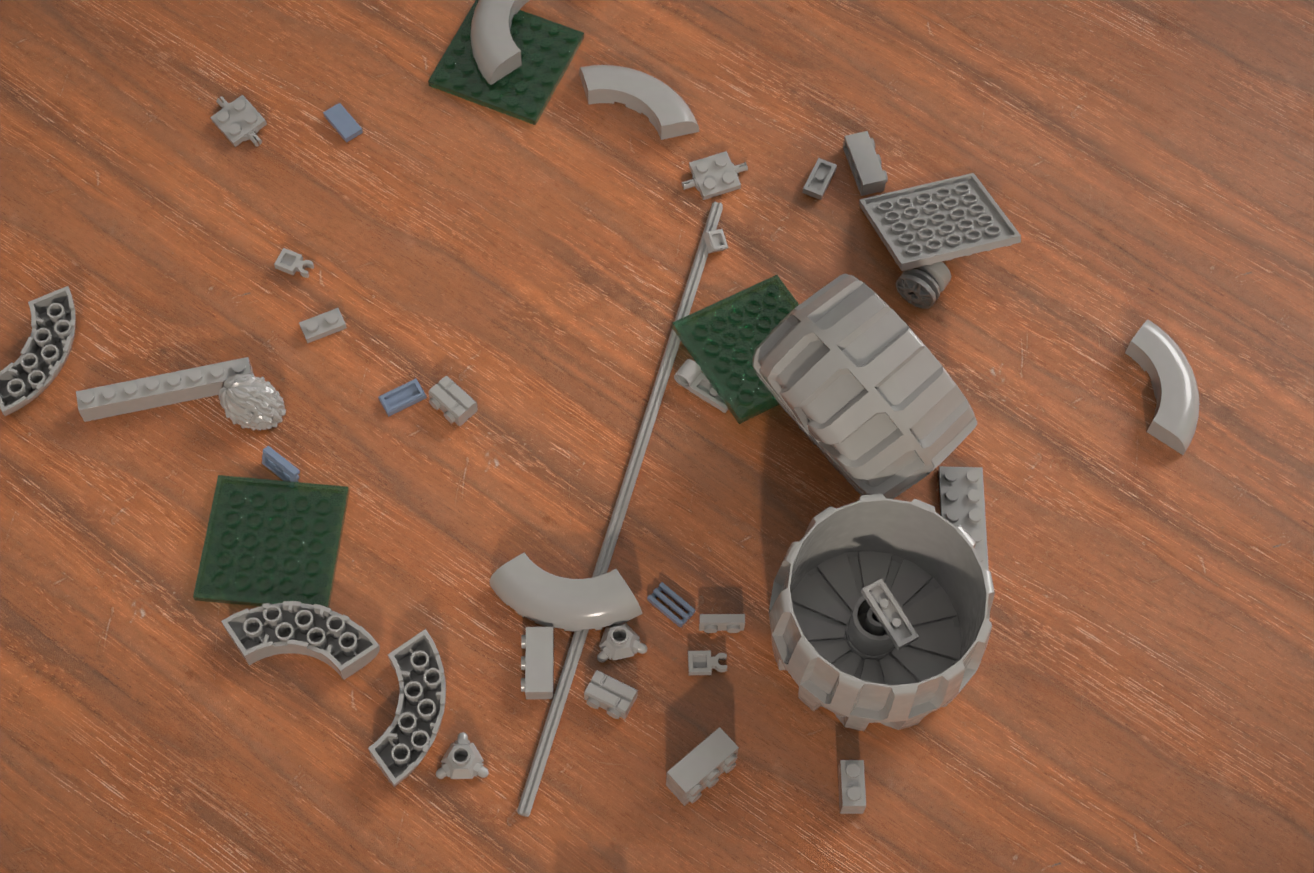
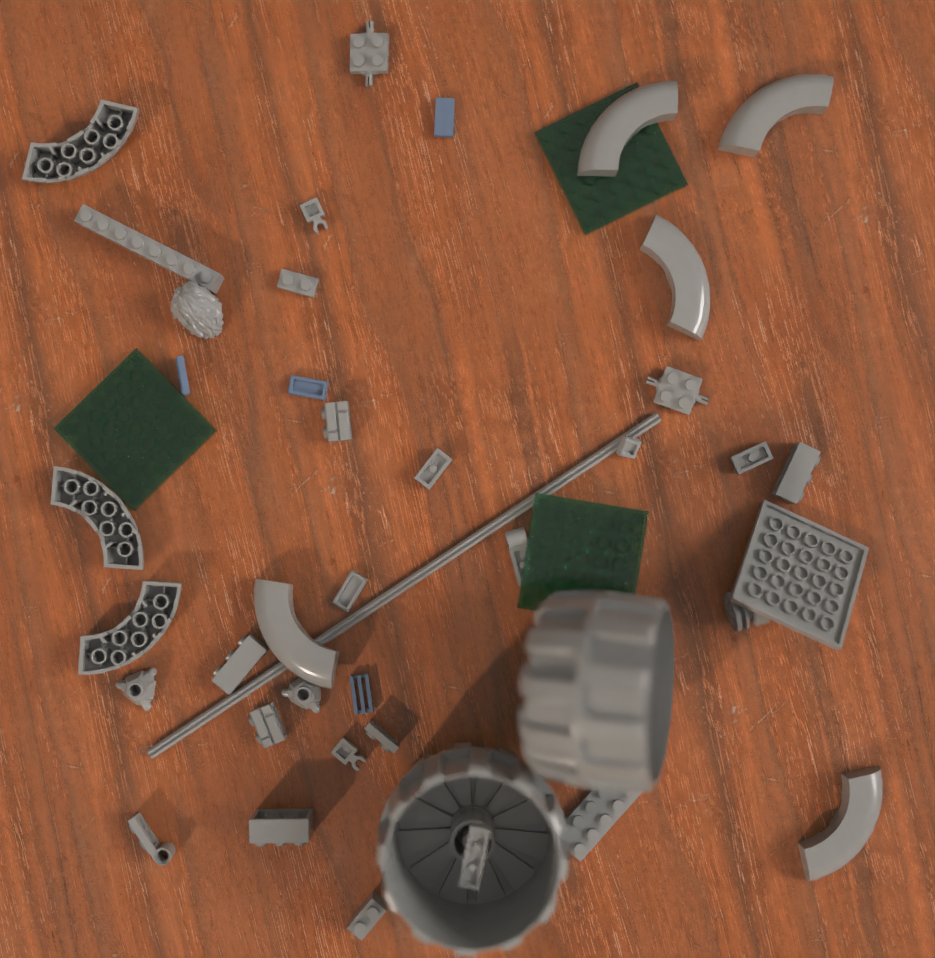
camera: 45 degrees right, 25 degrees up
(568, 377) = (433, 468): none -> light grey plate
(584, 529) = (350, 591): none -> light grey tile

